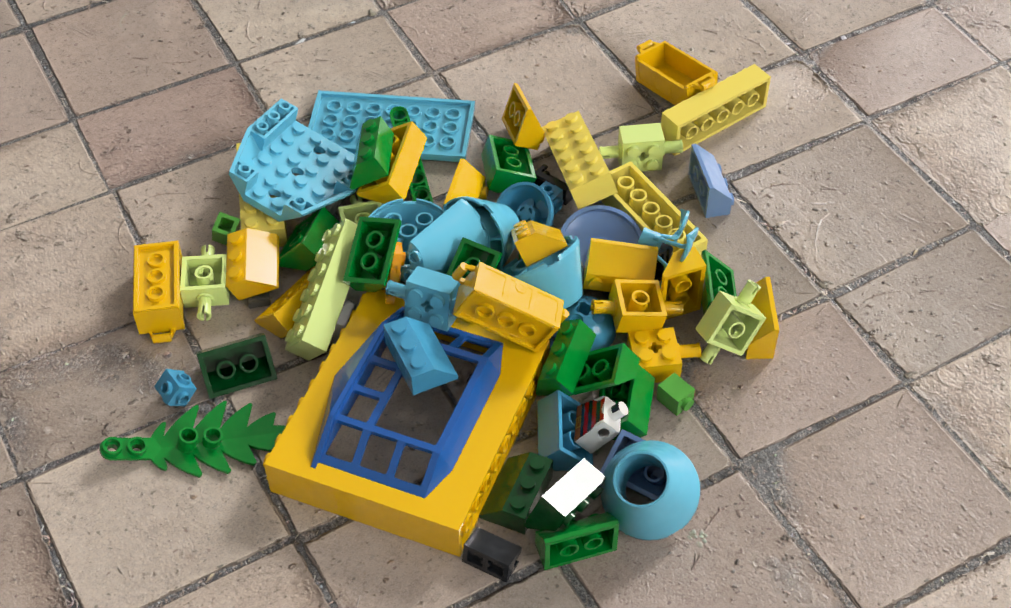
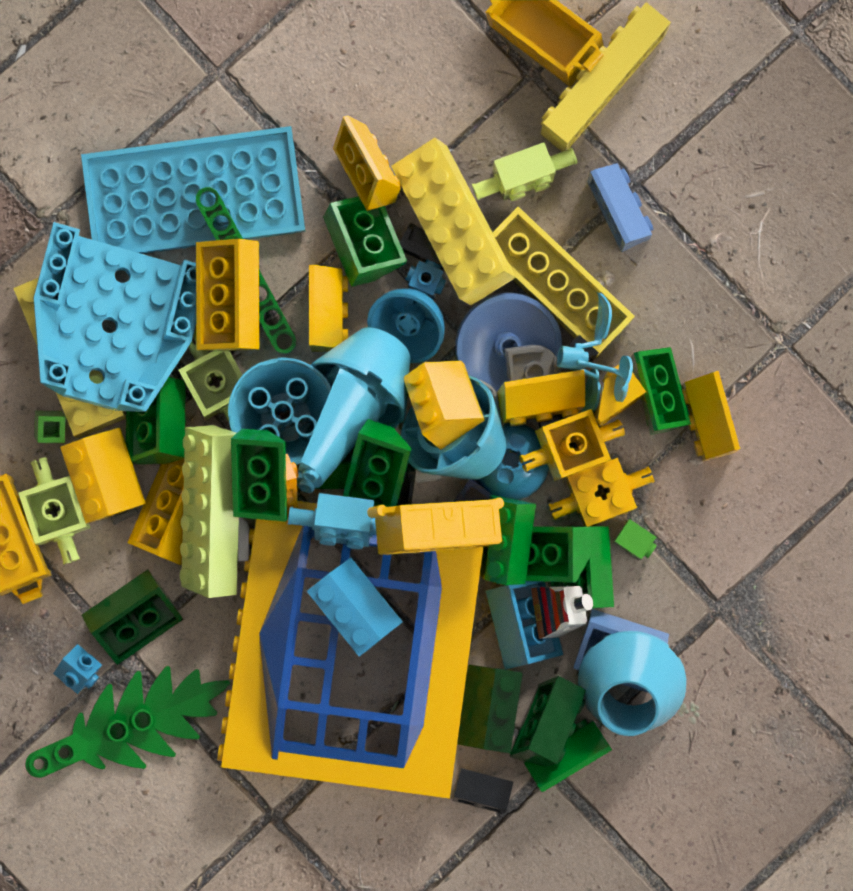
camera: 15 degrees left, 35 degrees up
(372, 153) = (202, 297): green slope -> none
(730, 323) = (683, 445): yellowish green brick -> none

